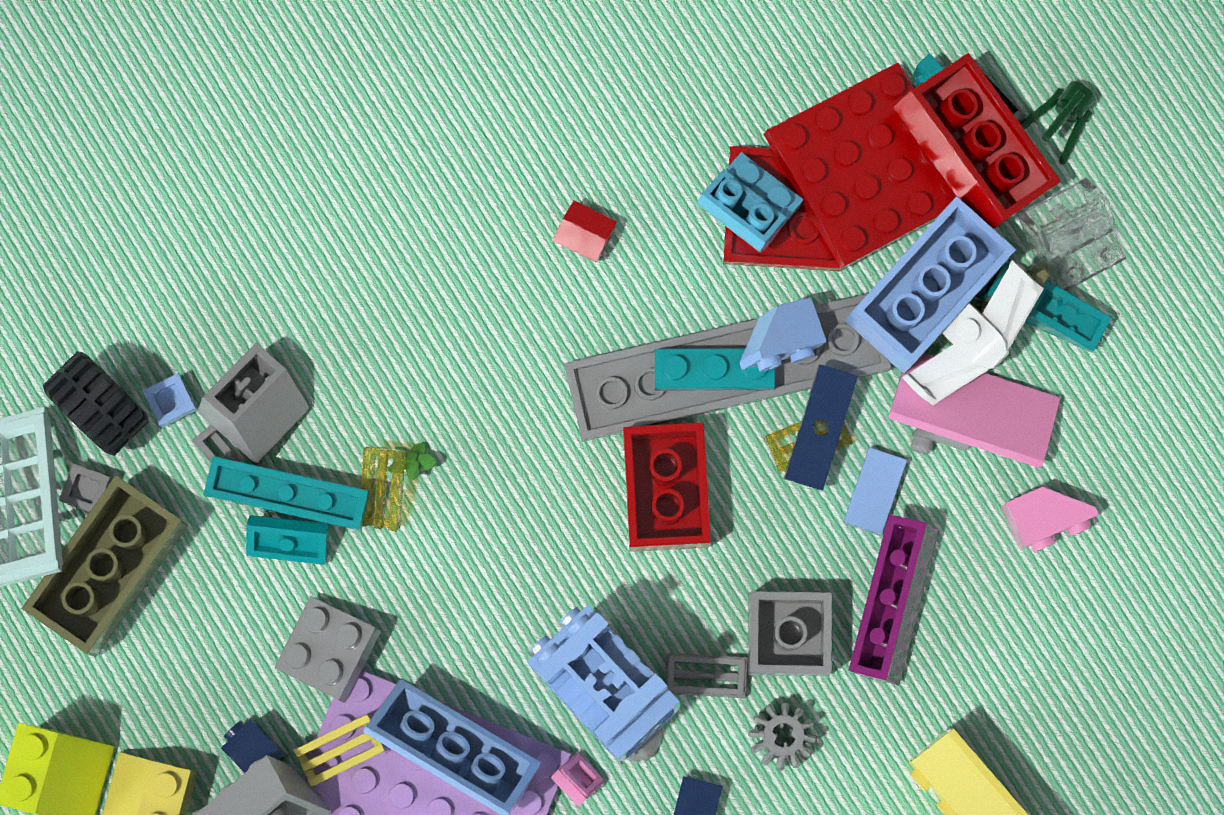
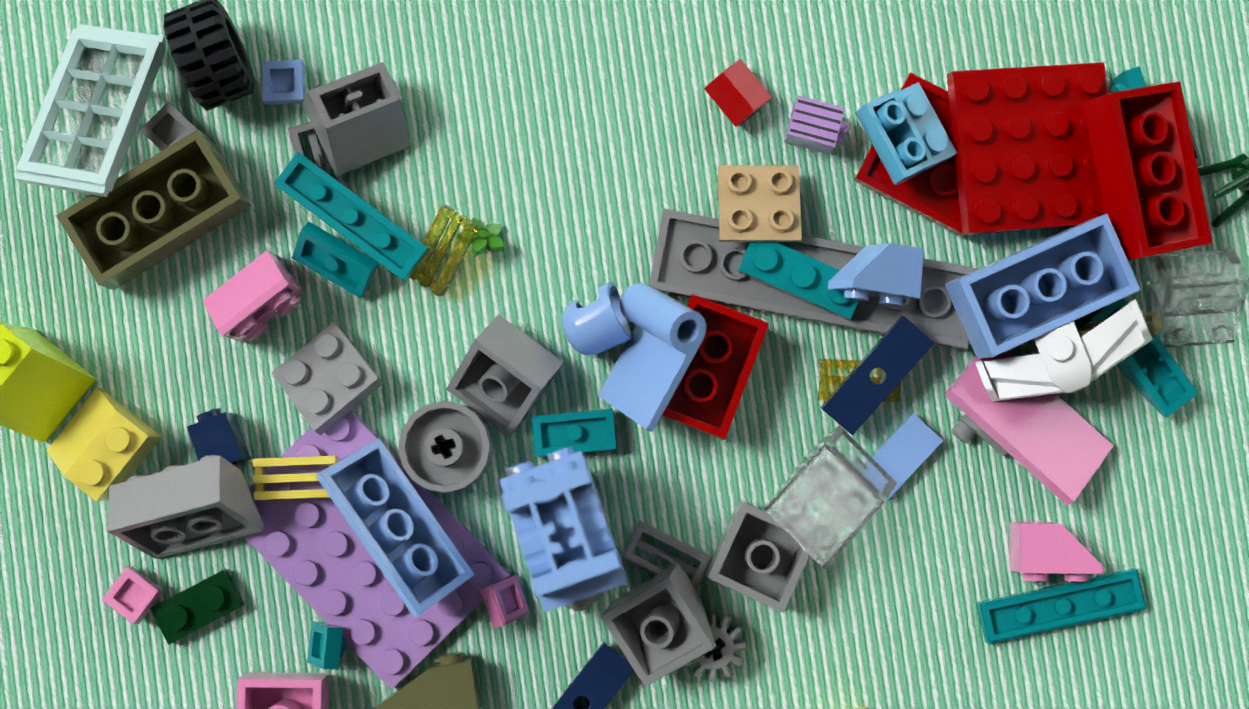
camera: 20 degrees right, 5 degrees up
(229, 605) = (253, 298): none -> bright pink slope
(456, 639) = (422, 441): none -> light grey wheel
(486, 576) = (504, 375): none -> light grey slope
(551, 493) = (597, 325): none -> light blue helmet
(583, 589) = (579, 430): none -> teal plate
(614, 495) = (655, 357): none -> light blue door
(647, 321) = (759, 203): none -> tan hinge
(667, 229) = (816, 125): none -> lavender brick
(727, 735) = (660, 625): none -> light grey slope
(826, 551) = (830, 496): none -> clear slope
(893, 599) = (872, 567): magenta brick -> none
(1078, 561) = (1061, 605): none -> teal tile

